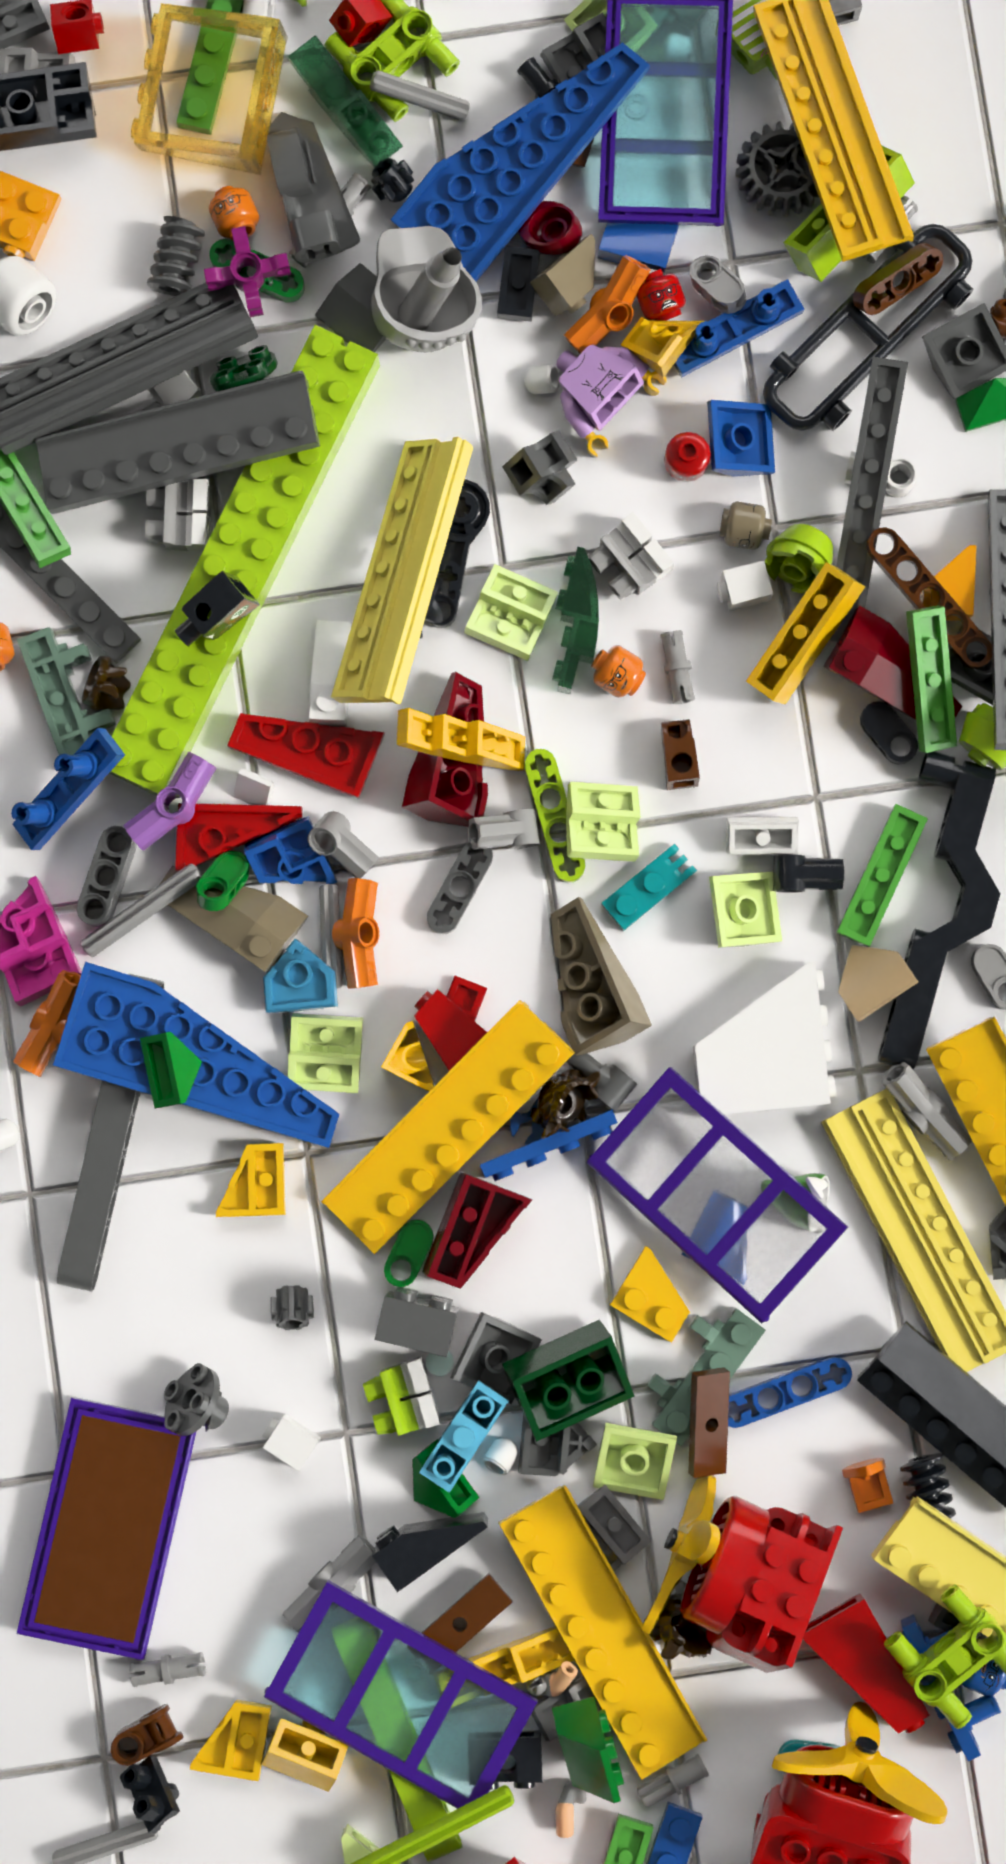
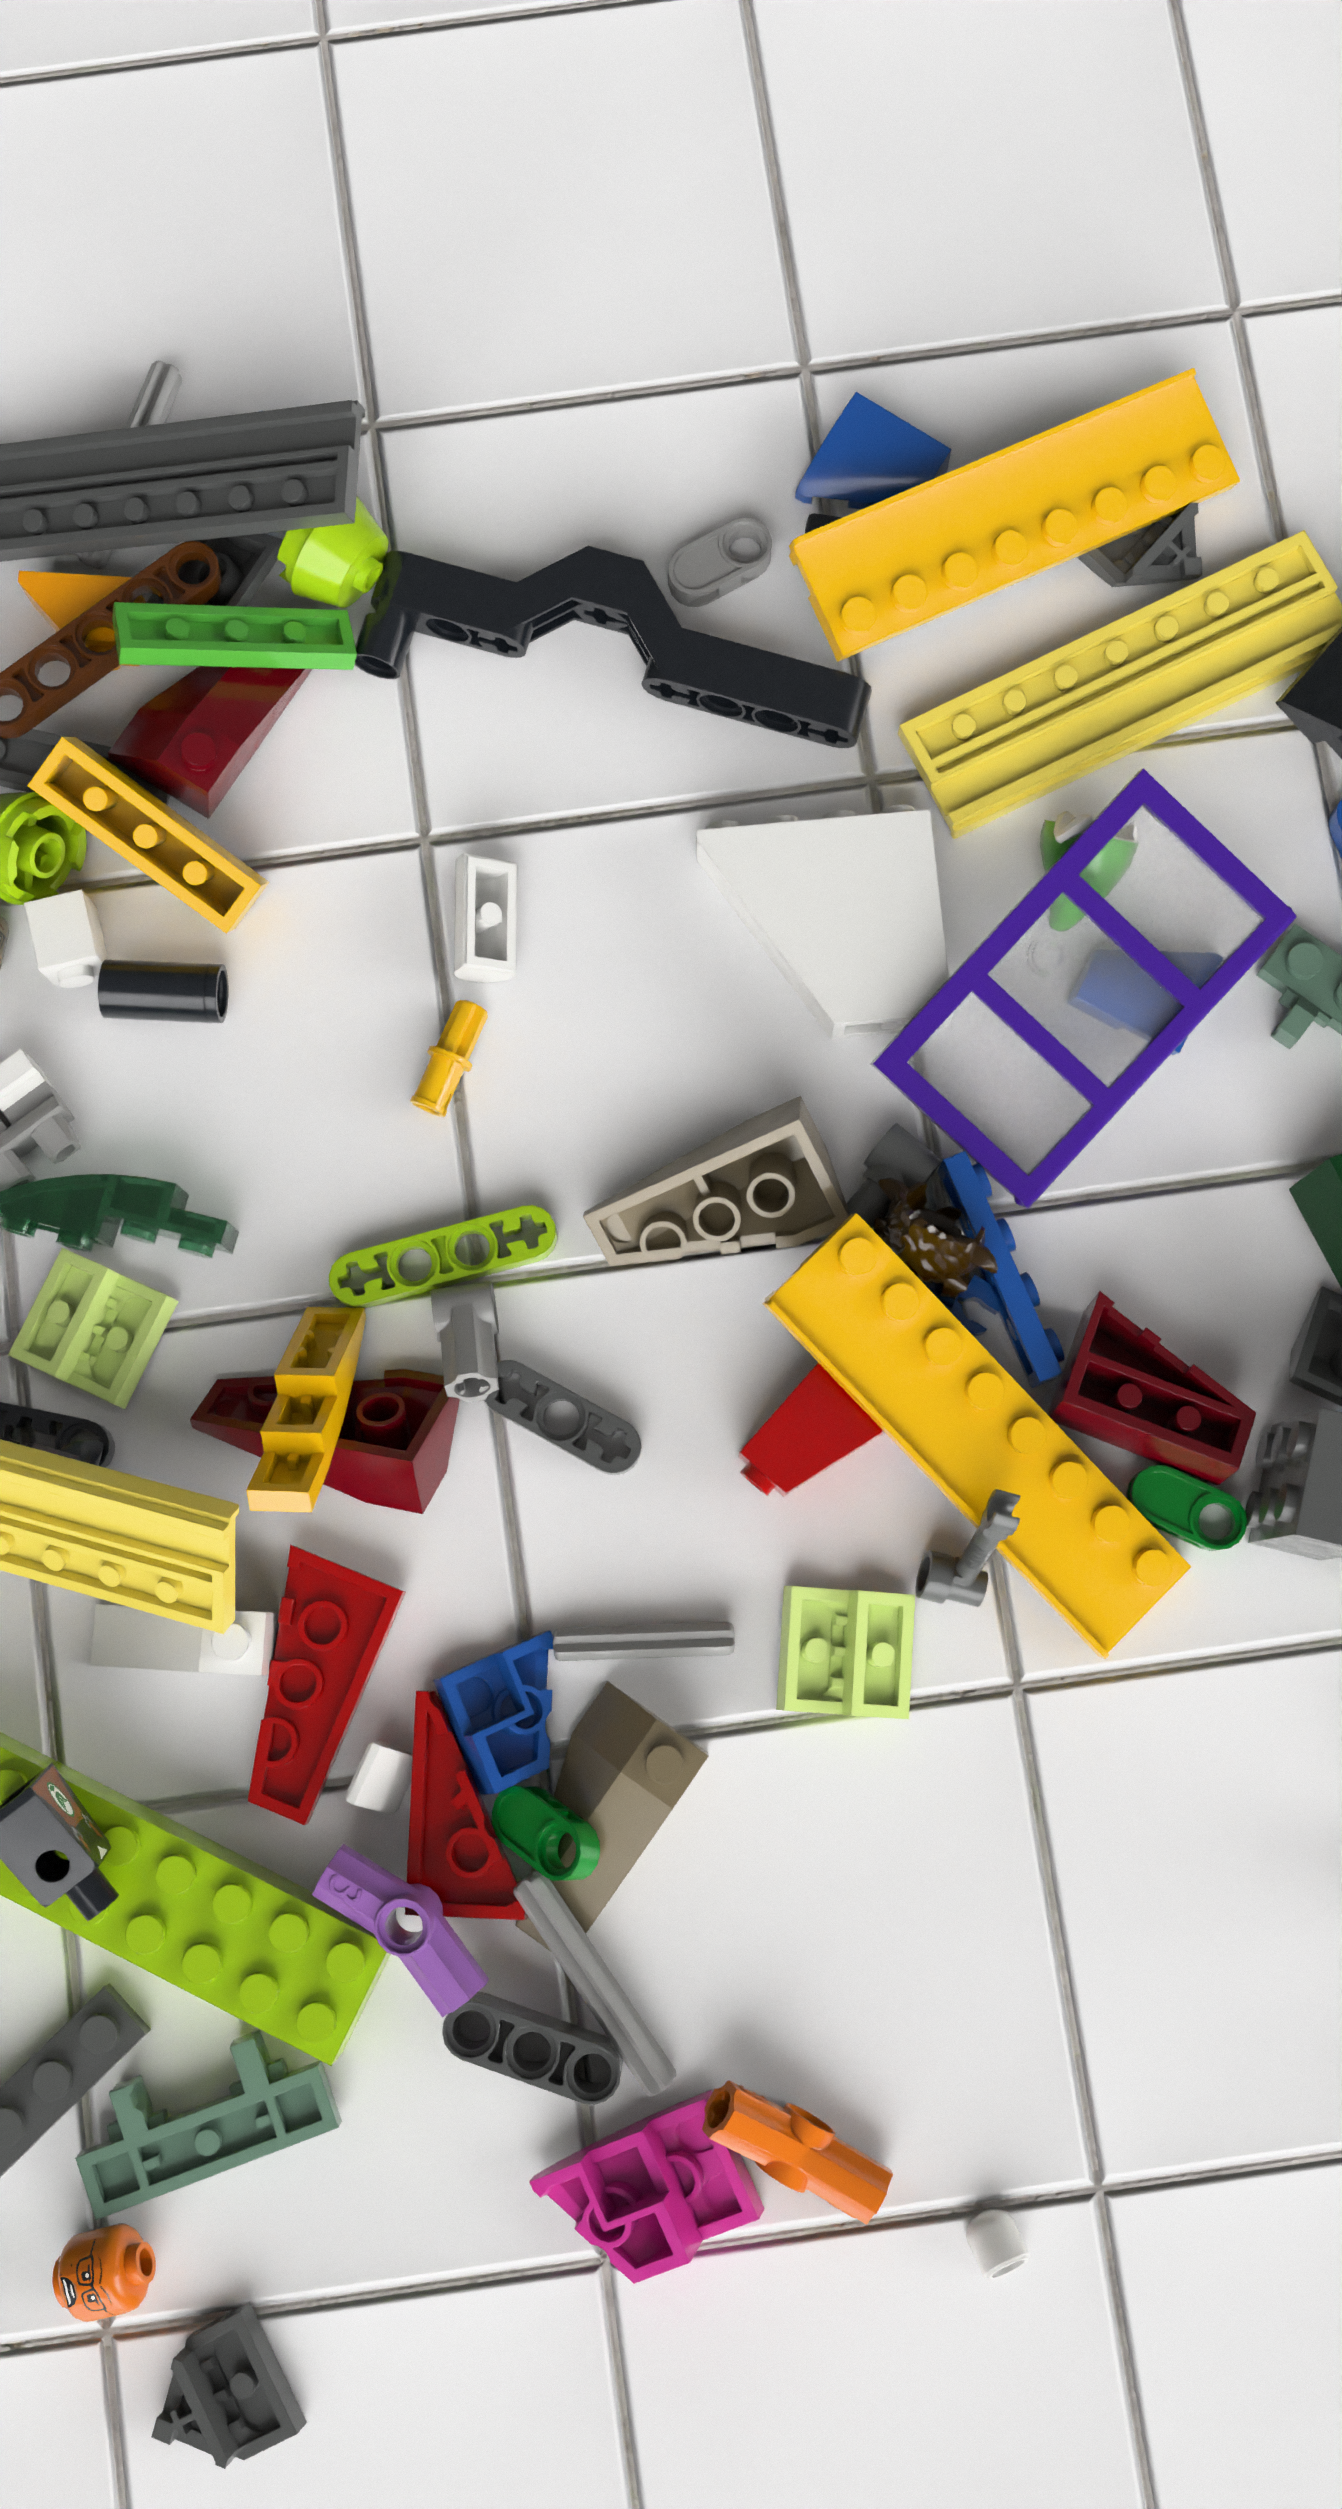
camera: 90 degrees left, 5 degrees down
(67, 789) = (375, 2122): blue plate -> none
(98, 1183) = (991, 2039): dark grey beam -> none
(105, 686) = (188, 2049): dark brown piece -> none
(169, 1068) = (886, 1930): green slope -> none
(233, 1082) = (840, 1953): blue wing -> none
(257, 1183) = (1076, 1772): yellow wing -> none
(292, 1307) = (1290, 1710): dark grey gear -> none
(299, 982) = (724, 1695): dark azure plate -> none
(334, 838) = (485, 1620): light grey piece -> none
(358, 933) = (640, 1591): orange piece -> none
(367, 1120) = (962, 1577): none -> dark grey brick
(408, 1059) = (860, 1505): yellow slope -> none
(467, 995) = (746, 1407): red tile -> none
(602, 821) = (455, 1176): yellowish green slope -> none
(618, 671) = (202, 1145): orange head -> none
(647, 888) = (569, 1106): teal hinge -> none
(651, 1297) = (1246, 1107): yellow wing -> none
(676, 816) = (450, 1058): none -> yellow axle
(677, 667) = (199, 1052): light grey pin -> none
(679, 755) = (346, 1048): reddish brown leg -> none
(714, 644) = (163, 991): none -> black pin
(745, 909) = (607, 946): yellowish green slope -> none
(796, 873) = (549, 861): black piece -> none
(873, 979) = (724, 743): tan slope -> none
(882, 875) = (554, 733): bright green plate -> none
(884, 725) = (311, 732): black piece -> none
(926, 1110) = (937, 667): light grey piece -> none

